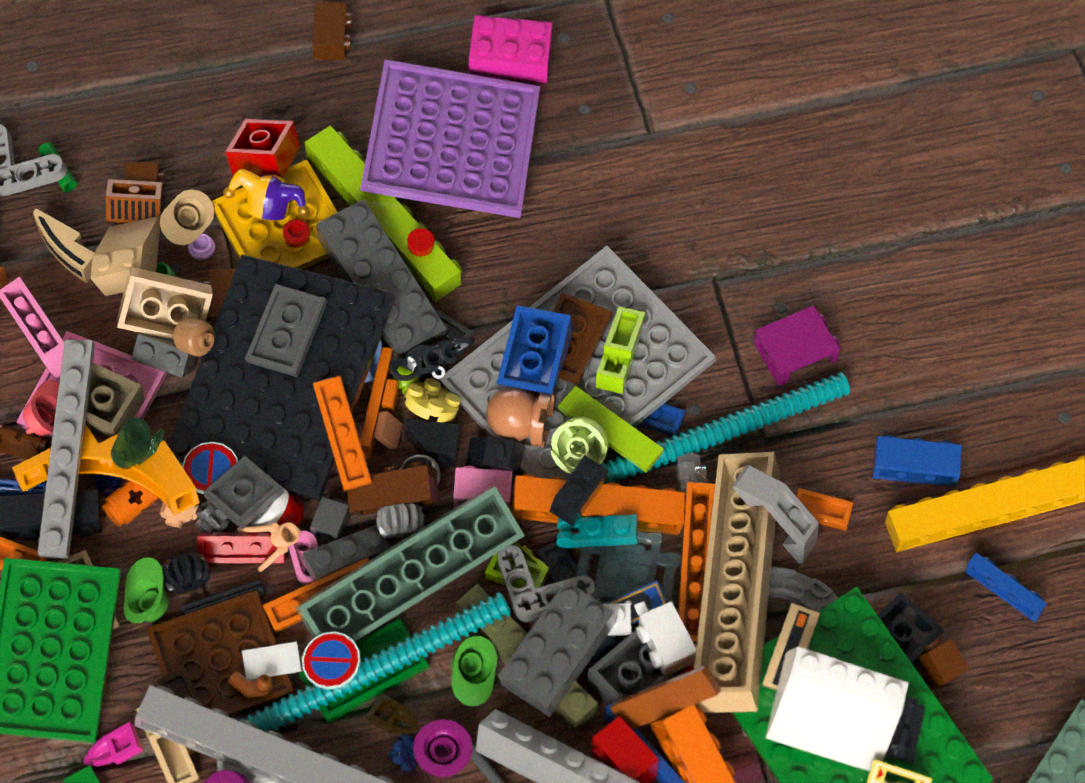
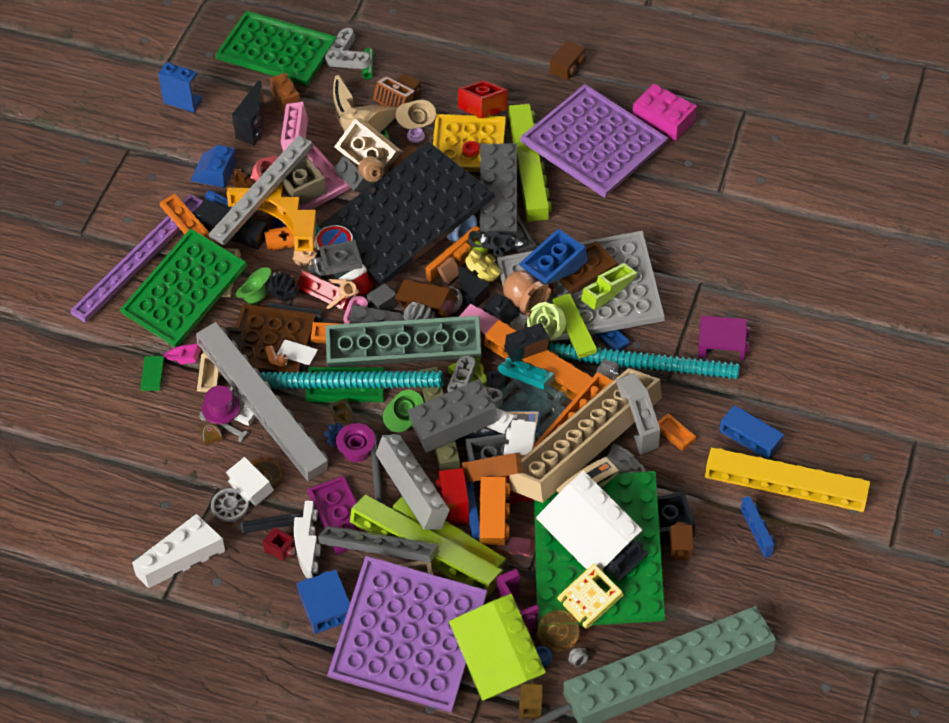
camera: 35 degrees right, 10 degrees down
(134, 443) = (295, 201): clear green bracket -> none
(267, 195) = (467, 122): piece -> none
(286, 330) = (422, 186): dark grey tile -> none
(331, 660) = (325, 362): piece -> none
(342, 433) = (415, 251): orange tile -> none
(420, 242) = (535, 182): red tile -> none

